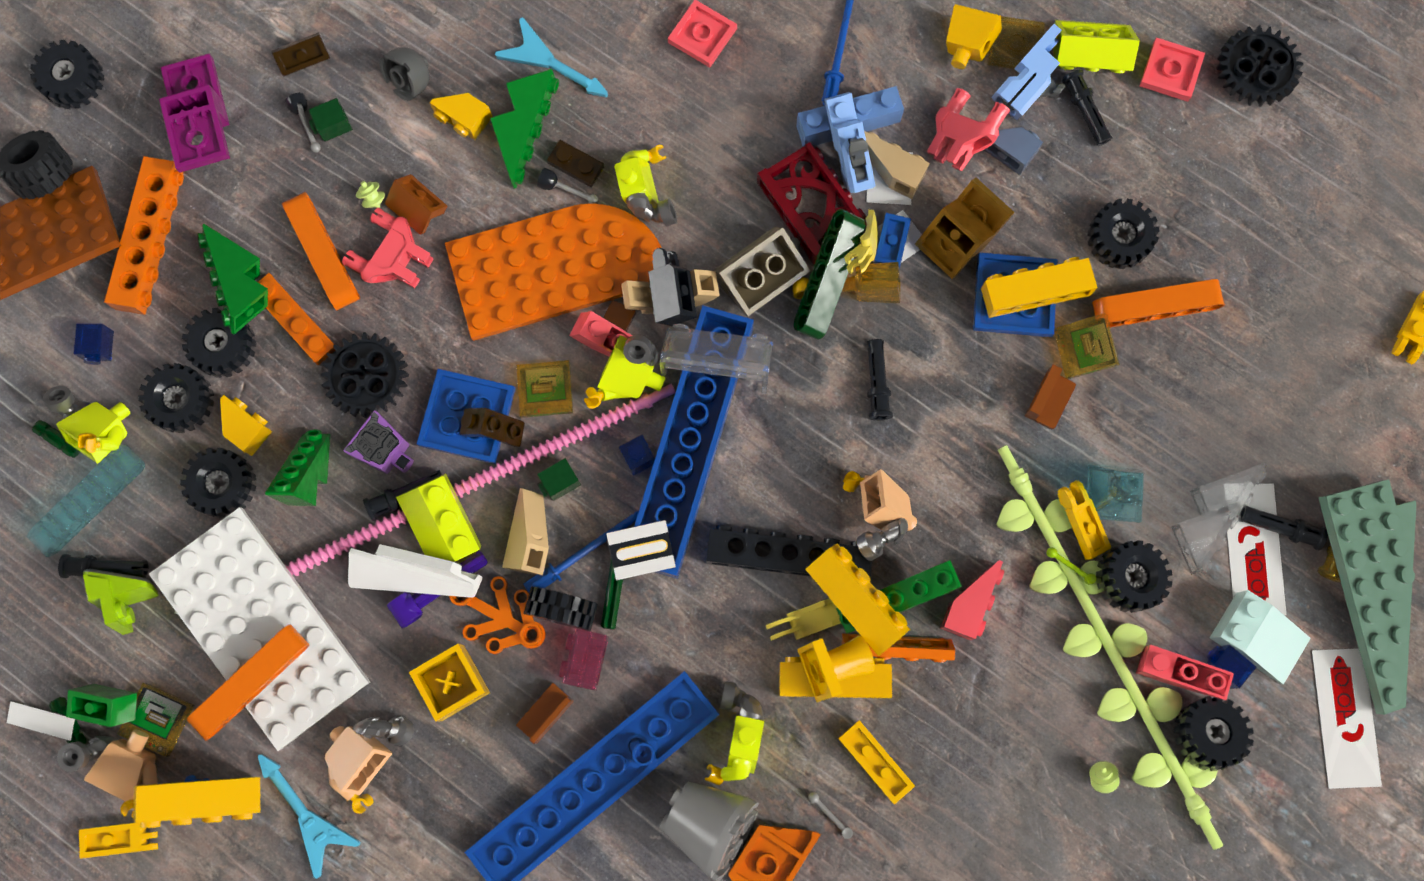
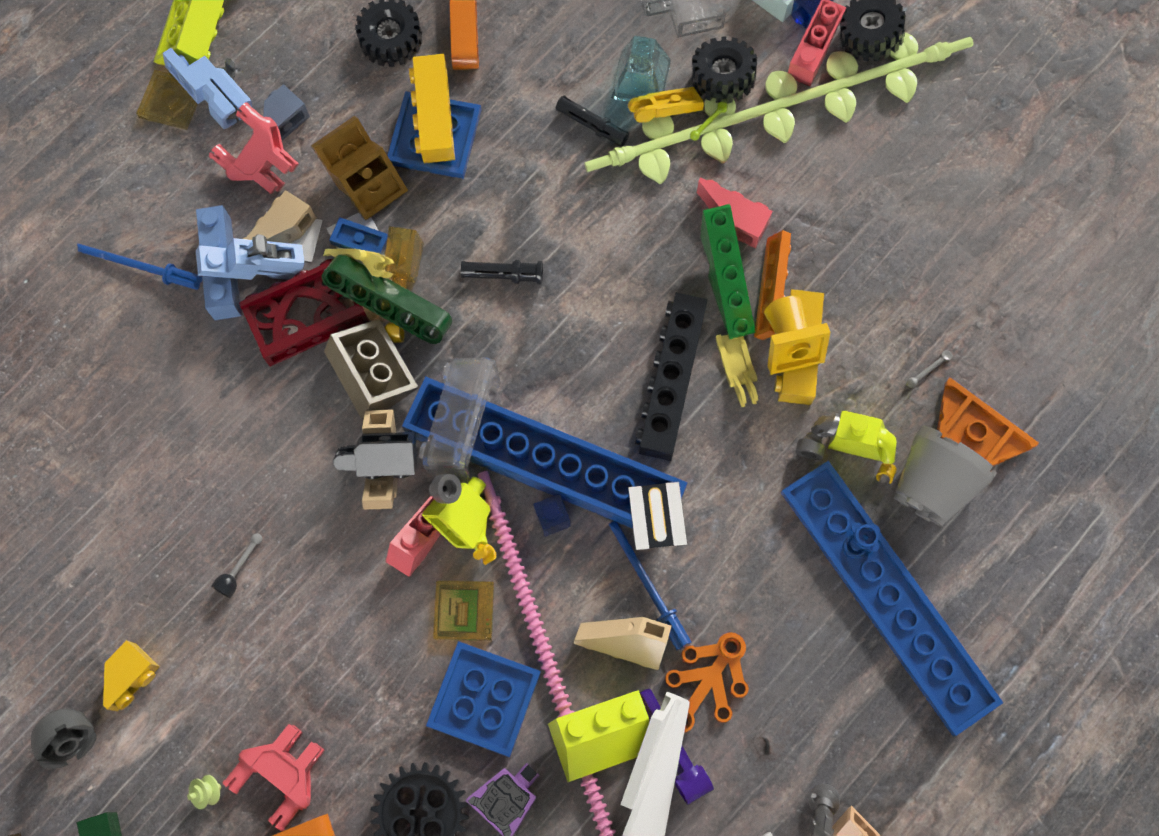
camera: 85 degrees left, 5 degrees down
(388, 501) = (567, 791): black pin -> none
(414, 202) = (222, 740): dark orange panel -> none
(449, 682) = (778, 737): yellow brick -> none
(493, 425) = (500, 669): dark brown bracket -> none
(520, 127) = (157, 611): green slope -> none
(537, 54) = (70, 586): medium azure piece -> none
(544, 713) = (816, 639): dark orange panel -> none
(548, 266) = (325, 593): orange plate -> none
(558, 480) = (568, 602): dark green brick -> none
(560, 608) = (711, 607): black bush -> none
(575, 163) = (211, 554): dark brown plate -> none
(584, 659) = (763, 592): clear pink brick -> none
(612, 600) = (694, 557): dark green axle -> none
(619, 315) = (393, 521): reddish brown tile -> none
(639, 189) = (256, 483): torso -> none
(702, 33) = (89, 401): coral plate -> none
(858, 598) = (729, 306): yellow brick -> none
(876, 762) = (881, 319): yellow plate -> none
(884, 507) = (636, 275): light nougat torso -> none
(971, 34) = (153, 136): yellow torso -> none
(1050, 398) = (541, 119): dark orange panel -> none
(1051, 456) = (601, 126): none -> black pin
(1083, 98) = (242, 46): black pin -> none
(1086, 346) = (497, 78): clear yellow tile -> none
(1104, 777) = (905, 122): yellowish green wheel -> none

